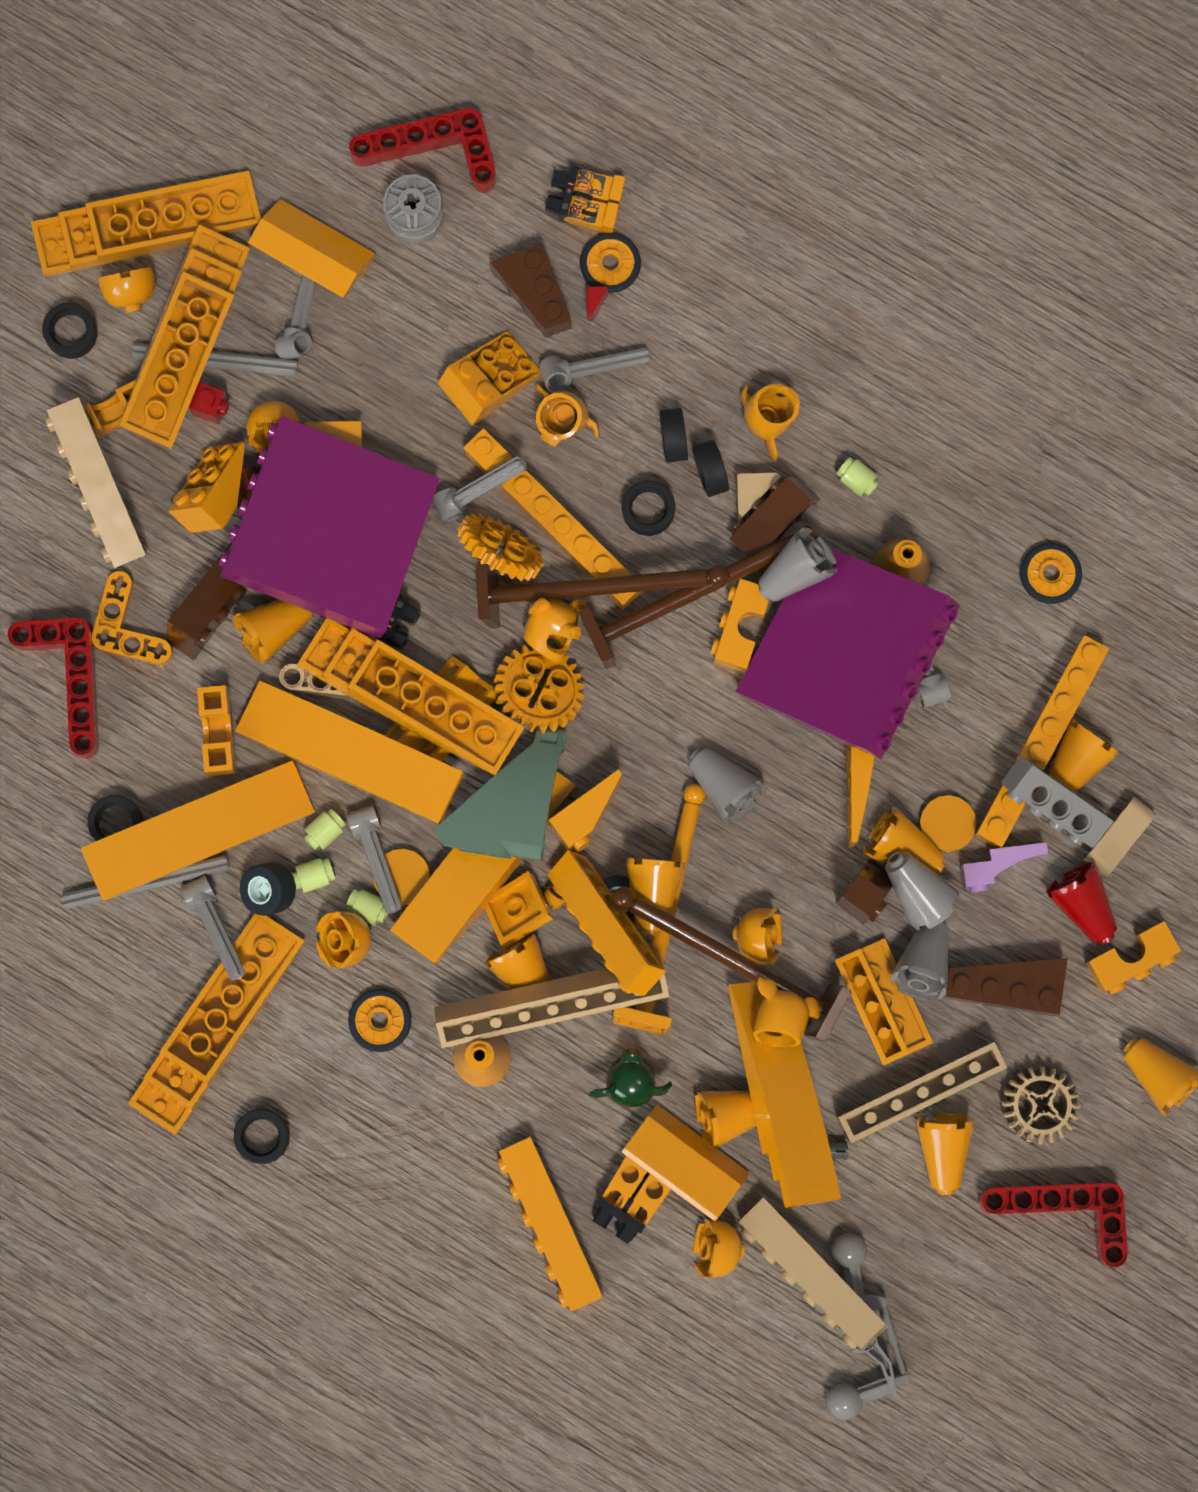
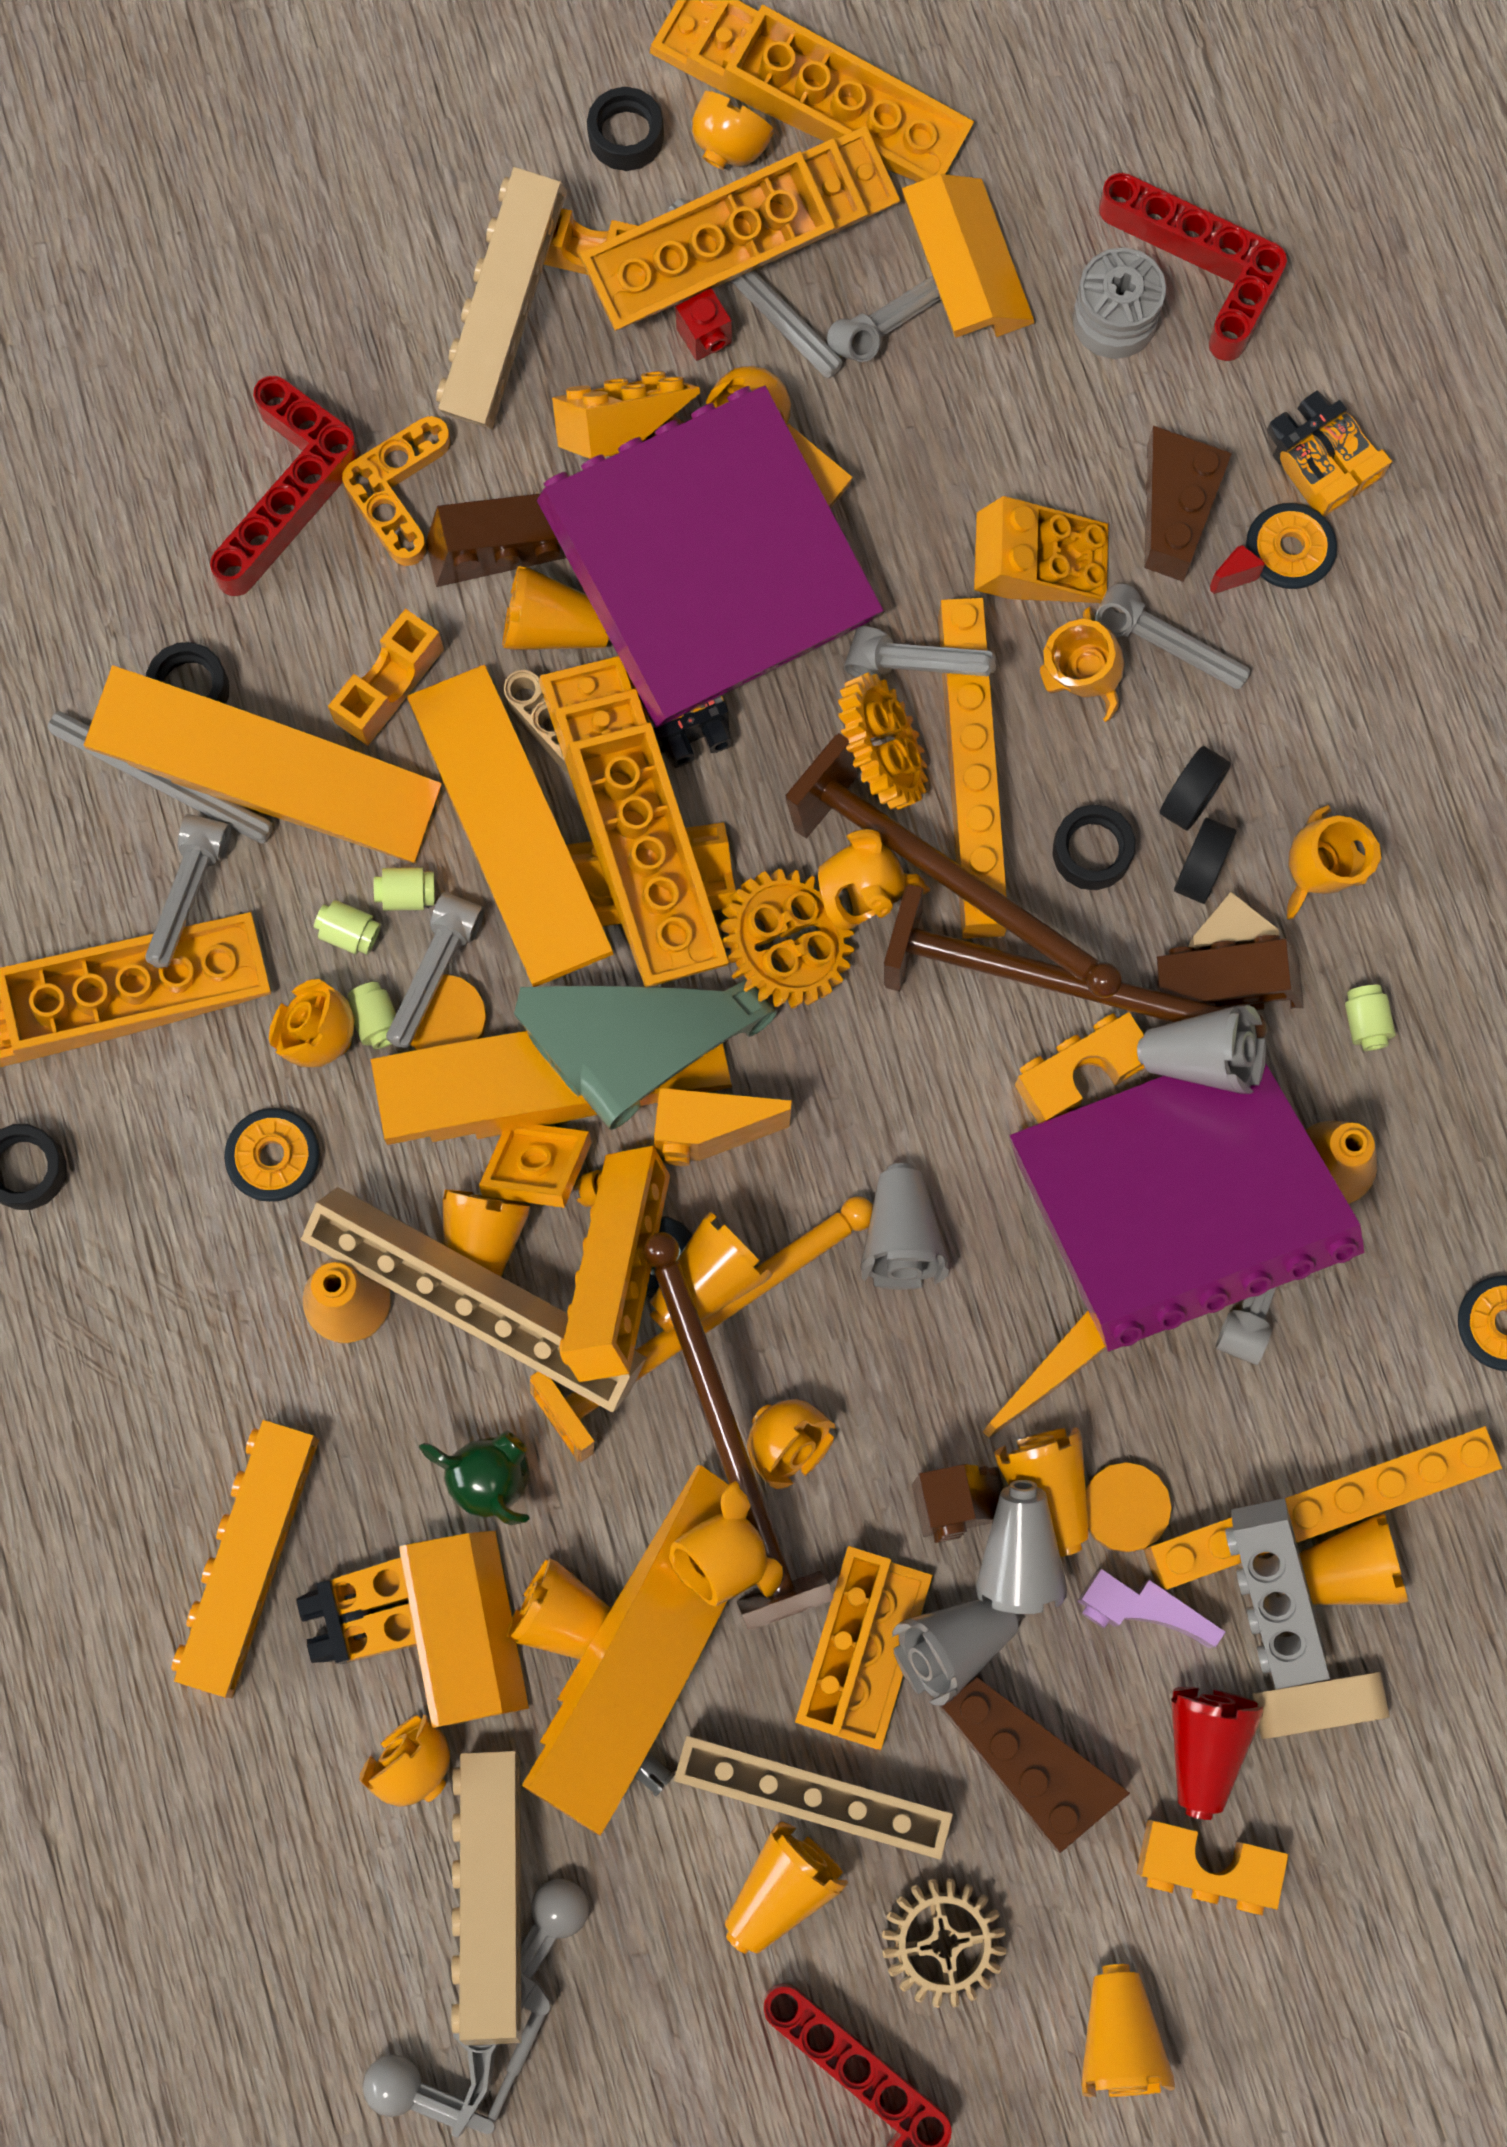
camera: 40 degrees right, 5 degrees down
(267, 888) = (281, 896): black wheel -> none

